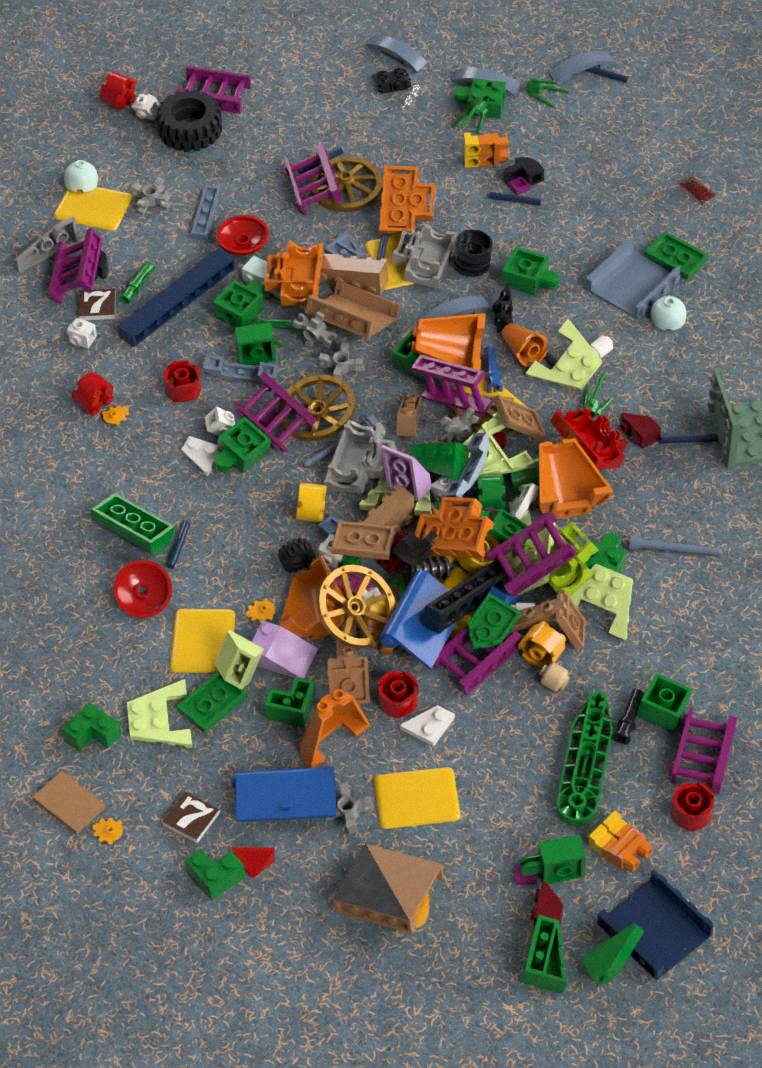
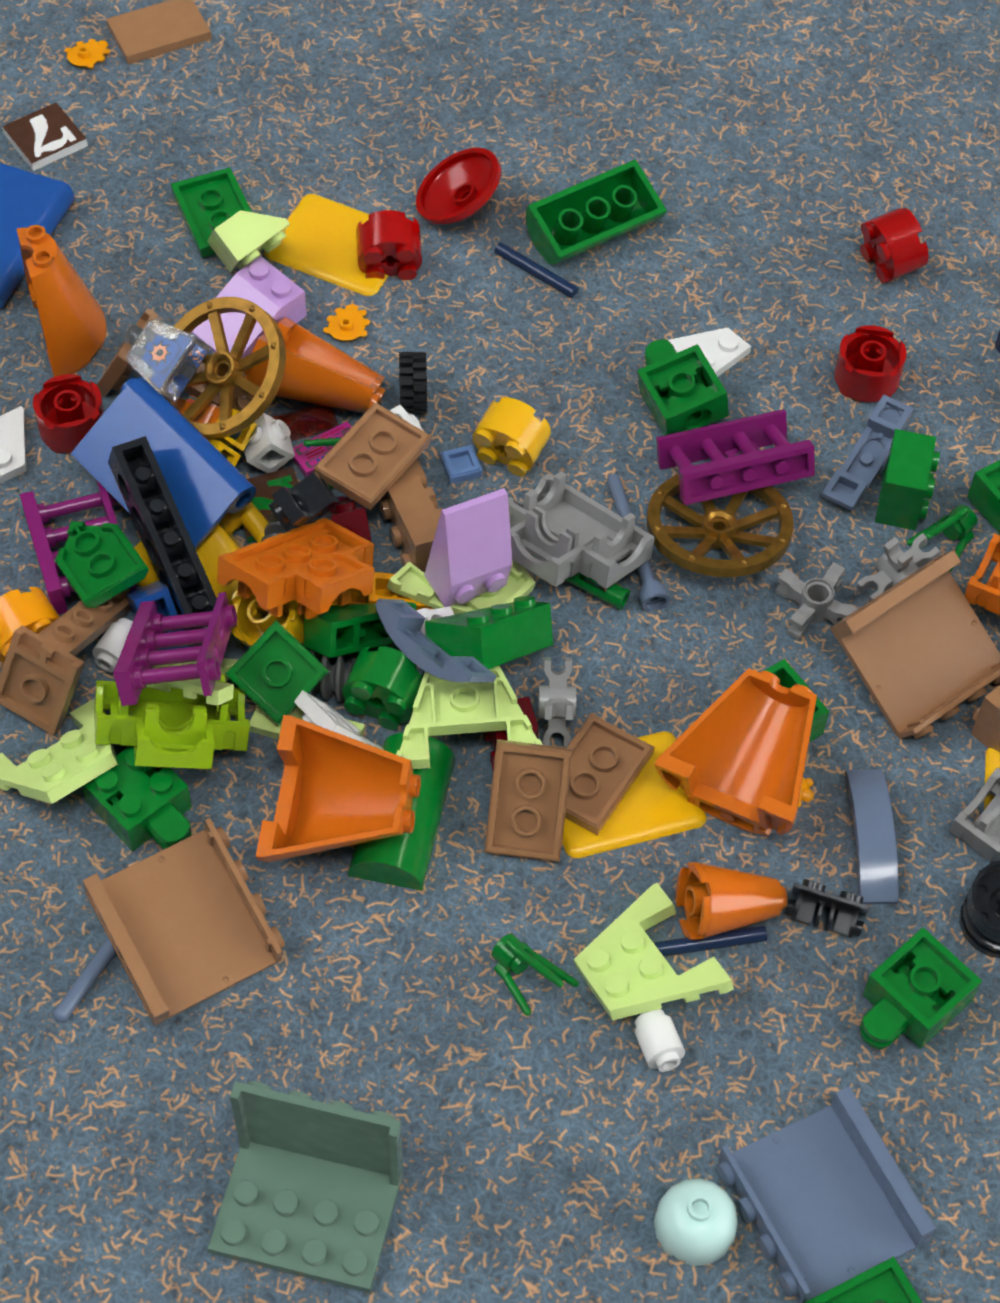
camera: 110 degrees right, 5 degrees up
(89, 725) = (255, 74): green brick -> none
(115, 415) = (848, 276): light orange piece -> none
(150, 717) = (235, 144): yellowish green wing -> none
(207, 600) = (389, 245): none -> red brick
(219, 421) = (754, 372): white brick -> none
(292, 706) = (140, 283): green brick -> none
(363, 628) = (164, 356): none -> clear torso
(408, 415) = (643, 653): medium nougat slope -> none
(456, 374) = (640, 690): magenta fence -> none
(492, 376) = (672, 823): blue pin -> none
(593, 436) = (416, 896): red piece -> none
(640, 428) = (411, 1012): dark red slope -> none
(650, 520) = (185, 923): none -> medium nougat panel
(688, 438) = (363, 1074): dark blue bar -> none

